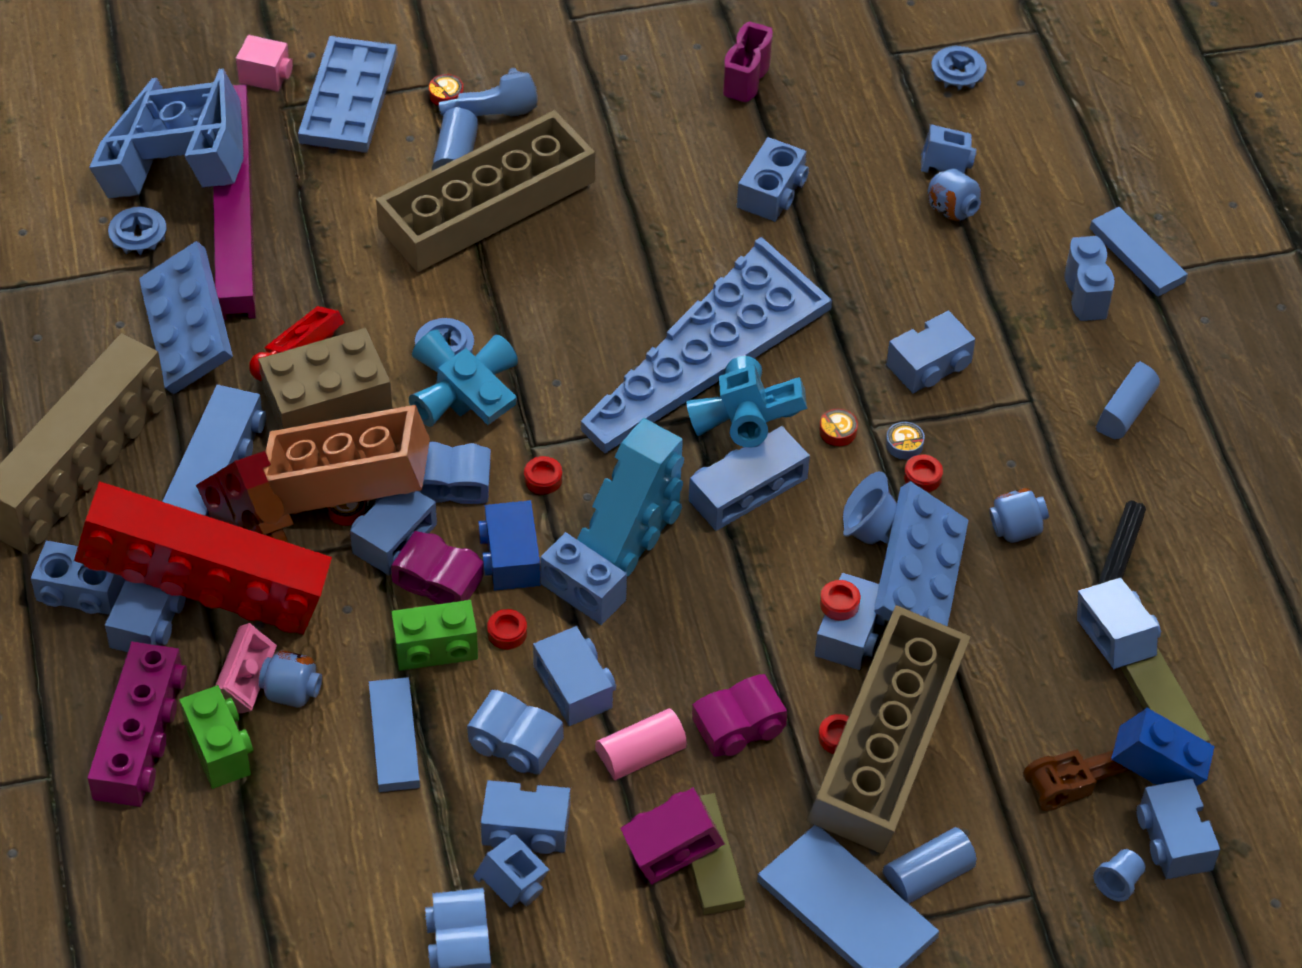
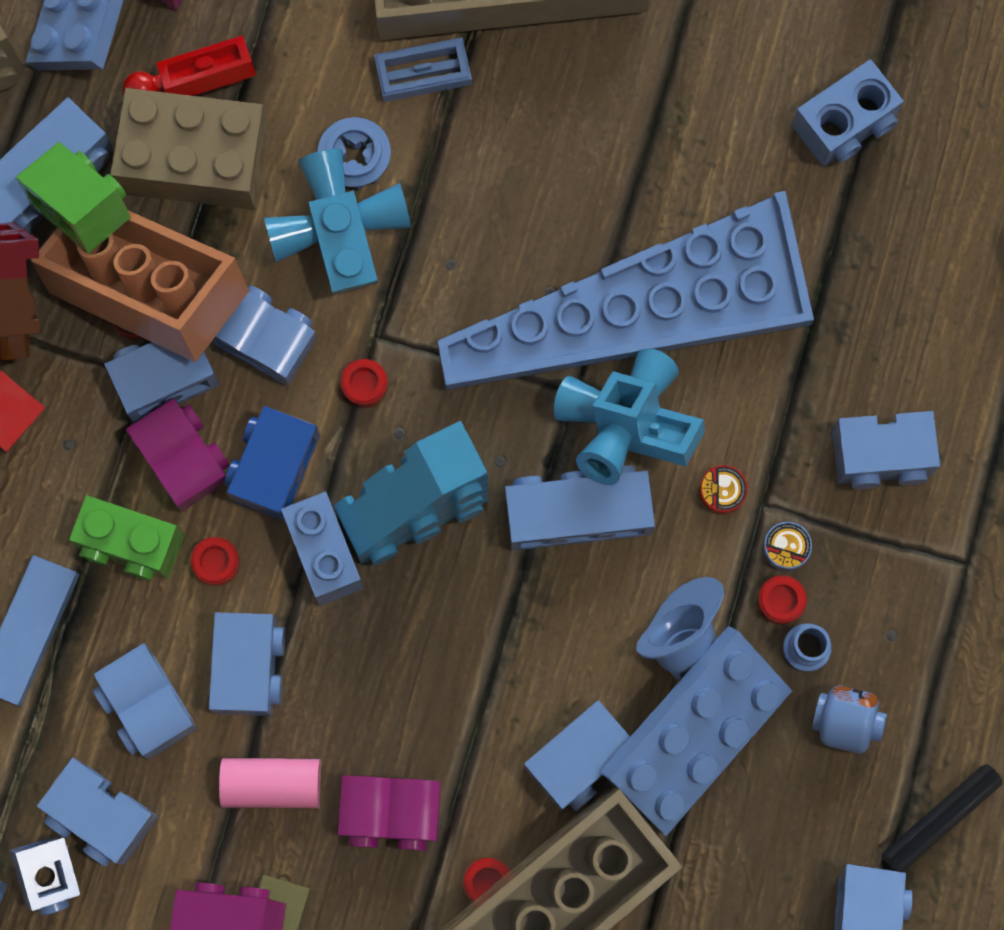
camera: 30 degrees right, 25 degrees up
(268, 424) = (74, 196): none -> bright green brick
(464, 279) = (426, 85): none -> medium blue tile
(840, 600) = (571, 738): red tile -> none
(960, 489) = (796, 658): none -> medium blue piece

